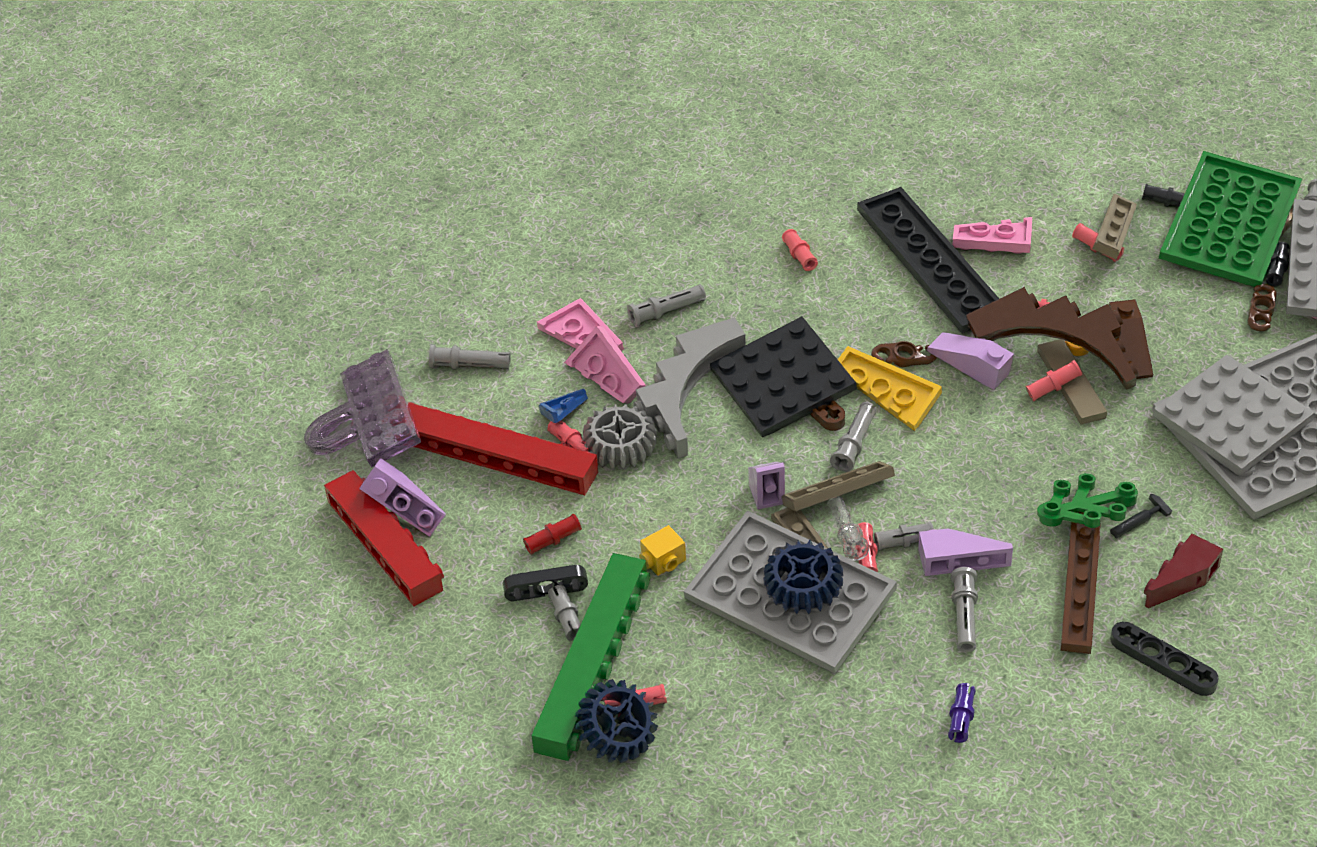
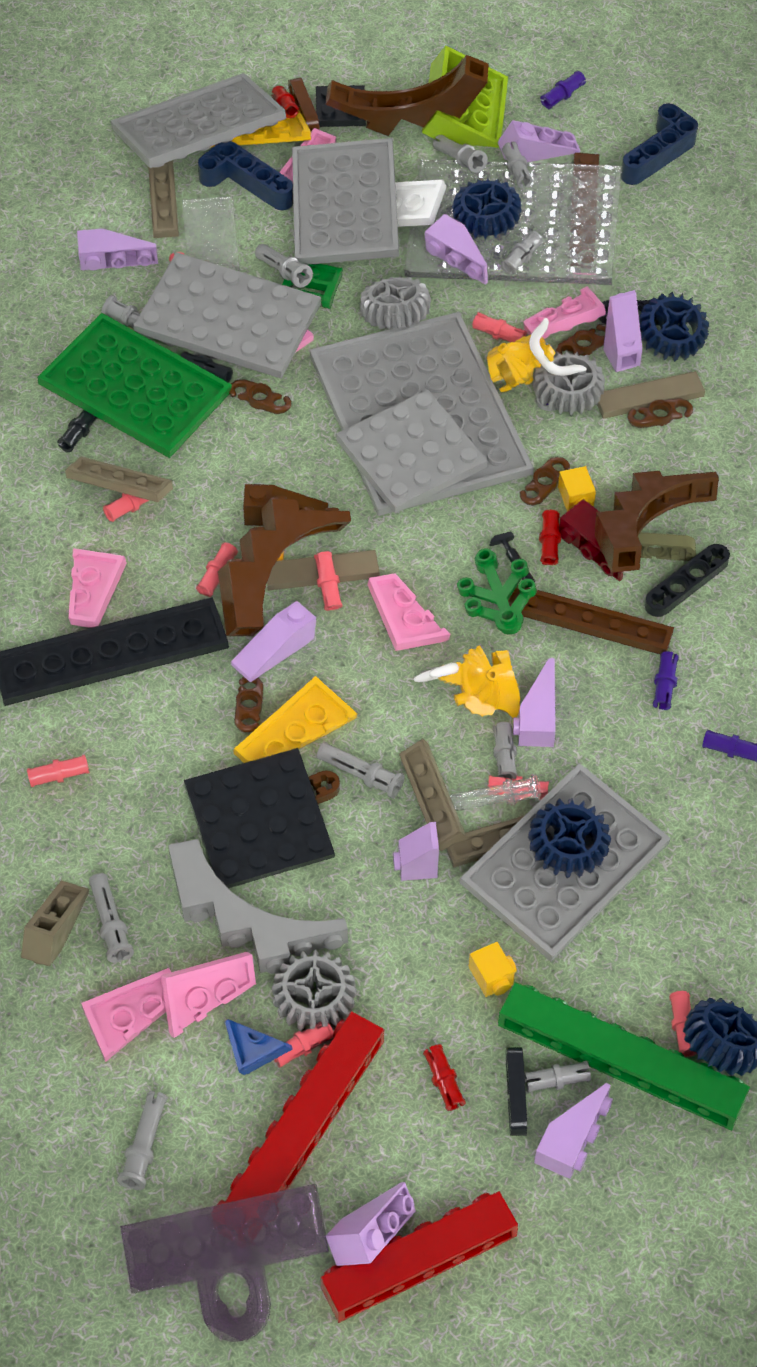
camera: 85 degrees left, 10 degrees up
(506, 624) = (567, 1135): none -> lavender slope
(651, 271) = (52, 923): none -> dark tan slope
(966, 637) = (596, 716): light grey pin -> none
(971, 500) = (482, 685): none -> yellow helmet
(1026, 649) = (665, 680): none -> dark purple pin
(1038, 442) = (402, 615): none -> bright pink wing
(1170, 538) = (550, 537): none -> red pin
(1195, 623) = (672, 546): none -> olive beam
(1243, 551) = (575, 486): none -> yellow brick
(1257, 609) = (650, 497): none -> reddish brown arch
(1262, 529) = (544, 491): none -> reddish brown piece

